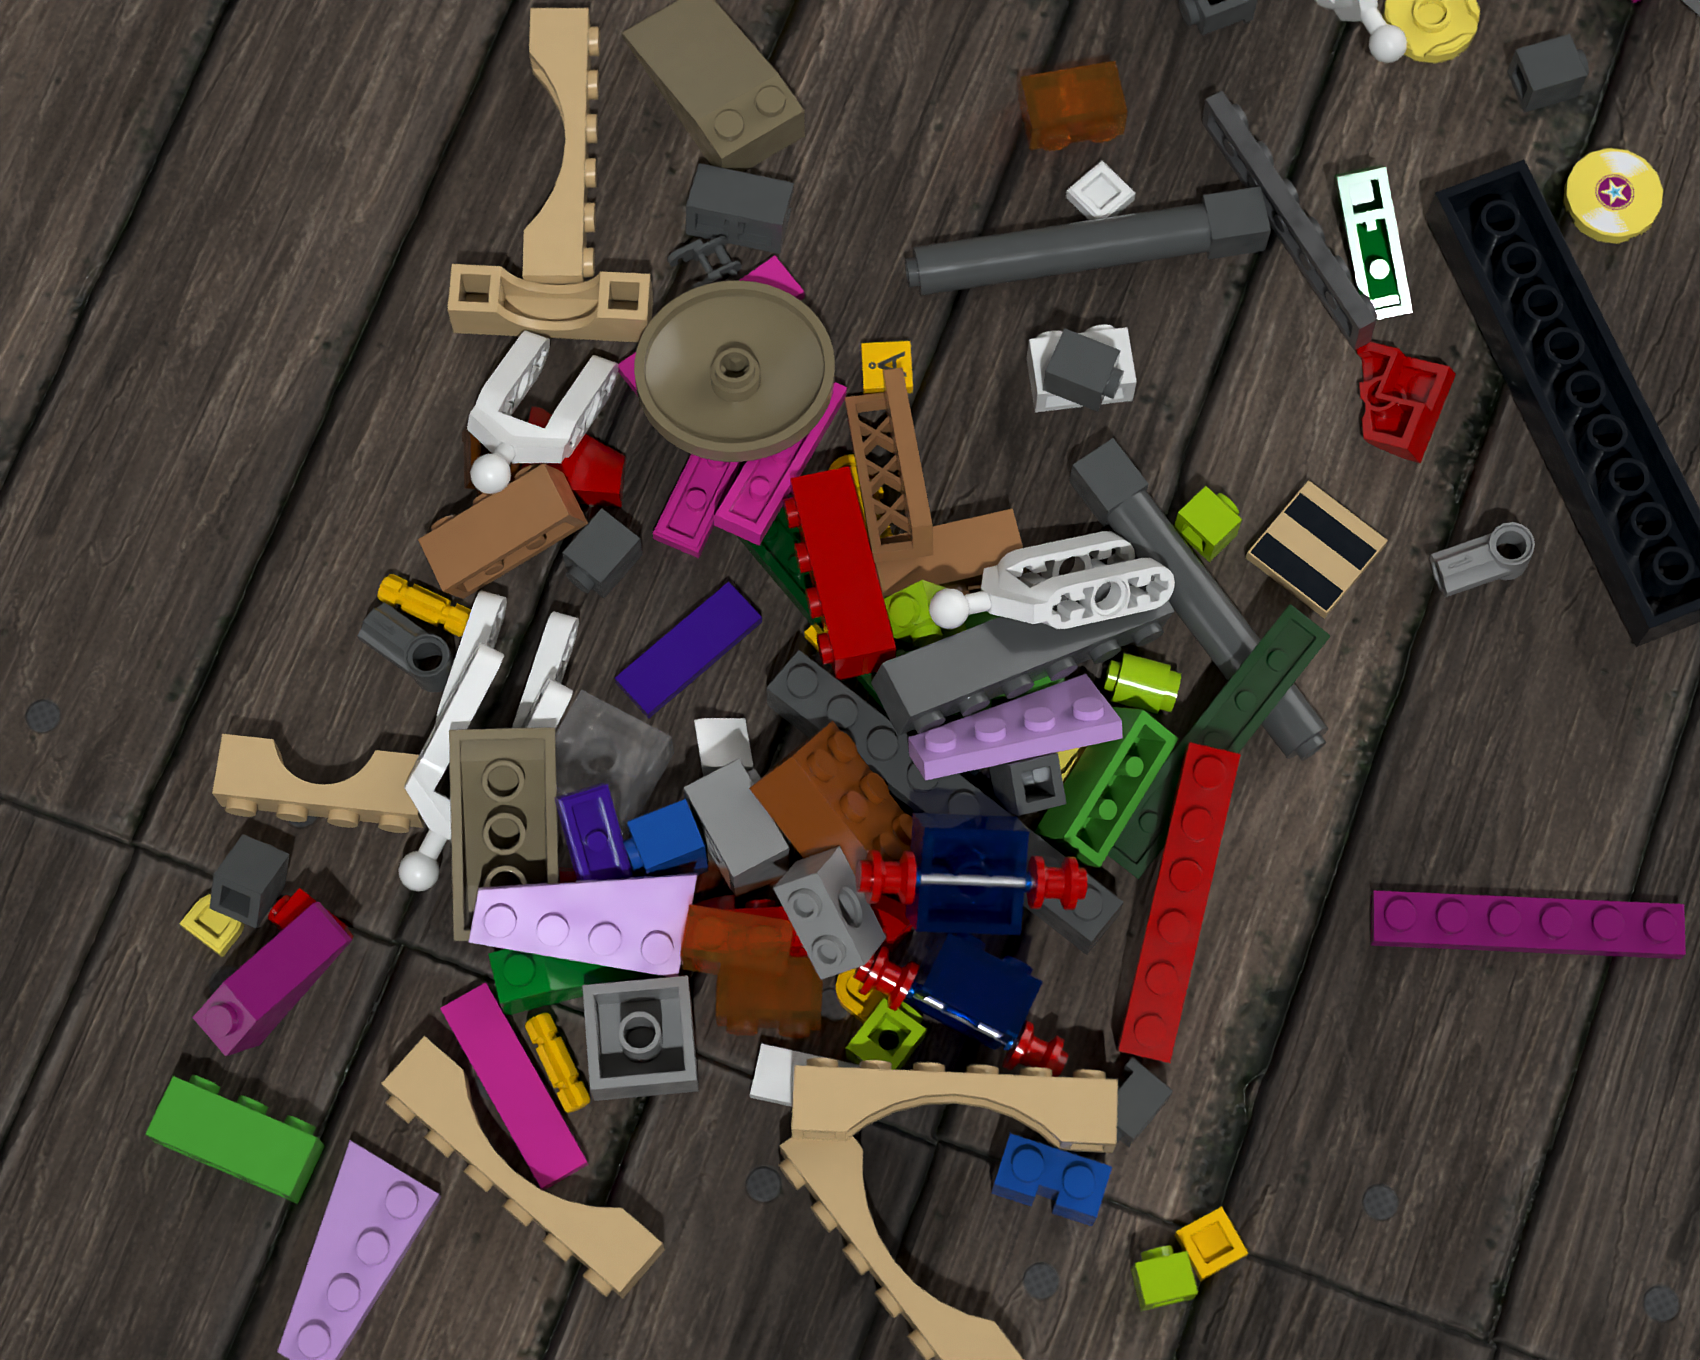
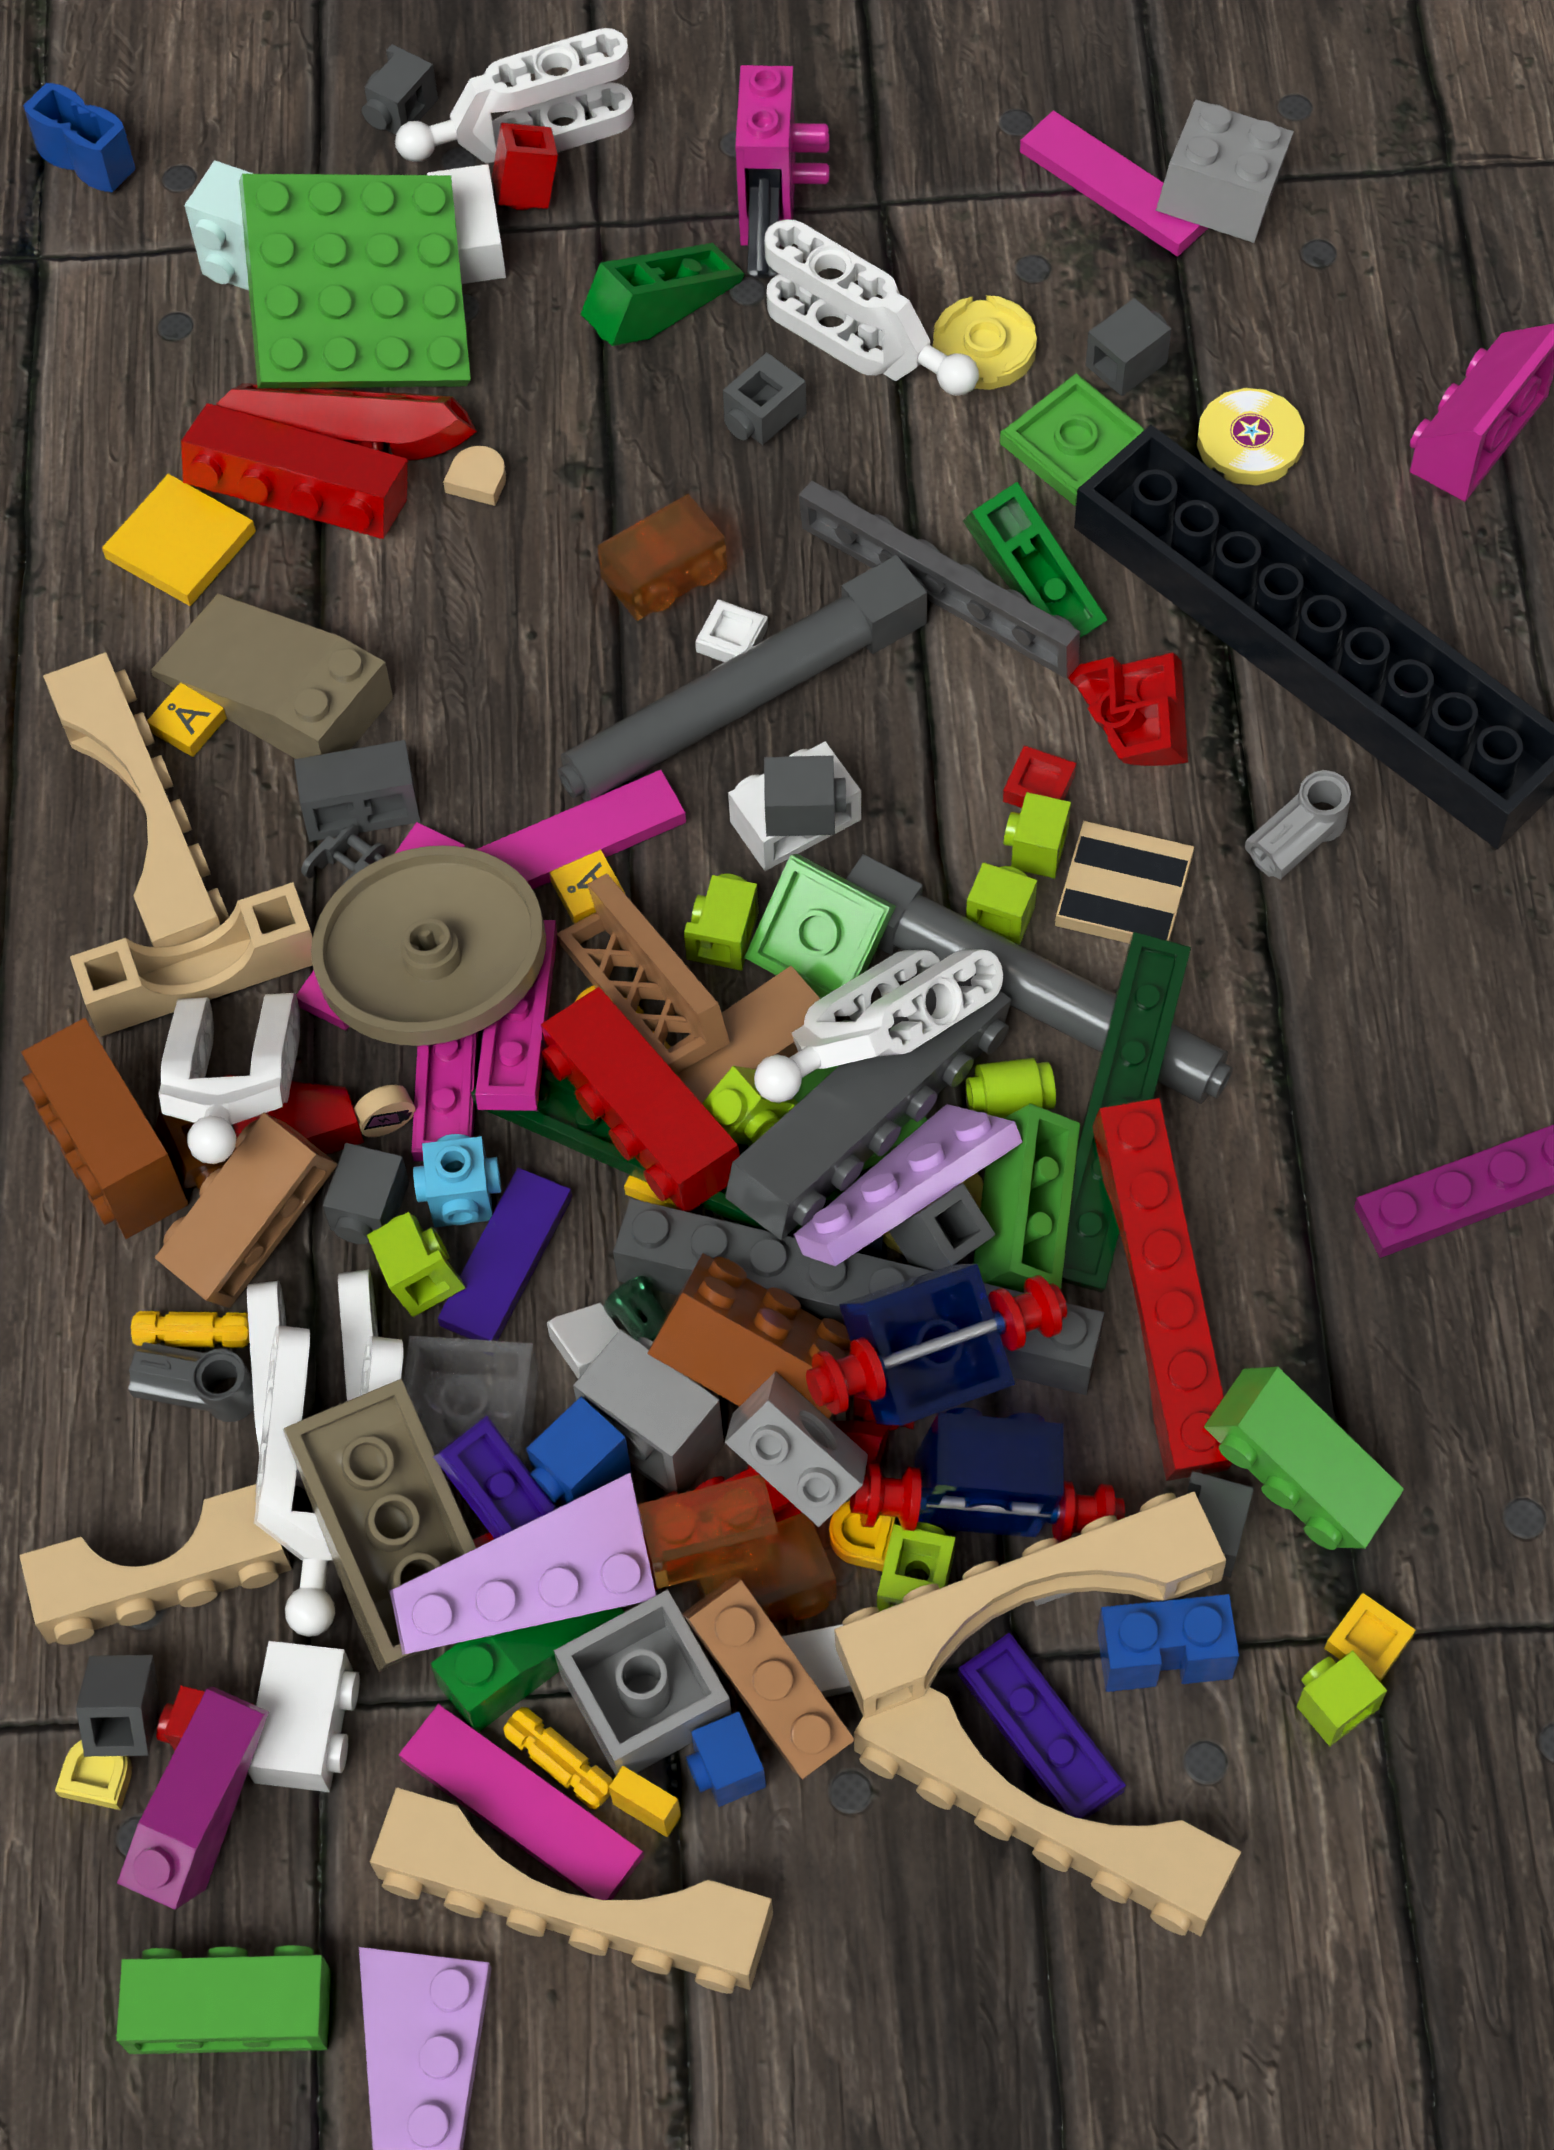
camera: 20 degrees left, 10 degrees down
(383, 945) = (306, 1703): none -> white brick
(419, 417) = (101, 1130): none -> dark orange brick
(605, 1125) = (645, 1801): none -> yellow tile
(613, 627) = (414, 1263): none -> lime brick
(631, 88) = (186, 719): none -> yellow tile
(645, 490) = (384, 1110): none -> tan tile
(677, 1121) = (725, 1760): none -> blue plate
(681, 588) = (457, 1180): none -> medium azure brick
(733, 1075) = (768, 1677): none -> medium nougat brick
(769, 740) = (629, 1300): none -> clear green bush
(913, 318) = (605, 823): none -> dark pink tile
(927, 1201) = (1041, 1729): none -> dark purple tile
(979, 444) = (722, 922): none -> lime brick
(1050, 485) = (819, 927): none -> tile
(1220, 1087) = (1303, 1459): none -> bright green brick
(1265, 477) = (1038, 834): none -> lime plate
(1288, 431) = (1038, 774): none -> red plate
(1463, 134) = (1070, 435): none -> bright green tile

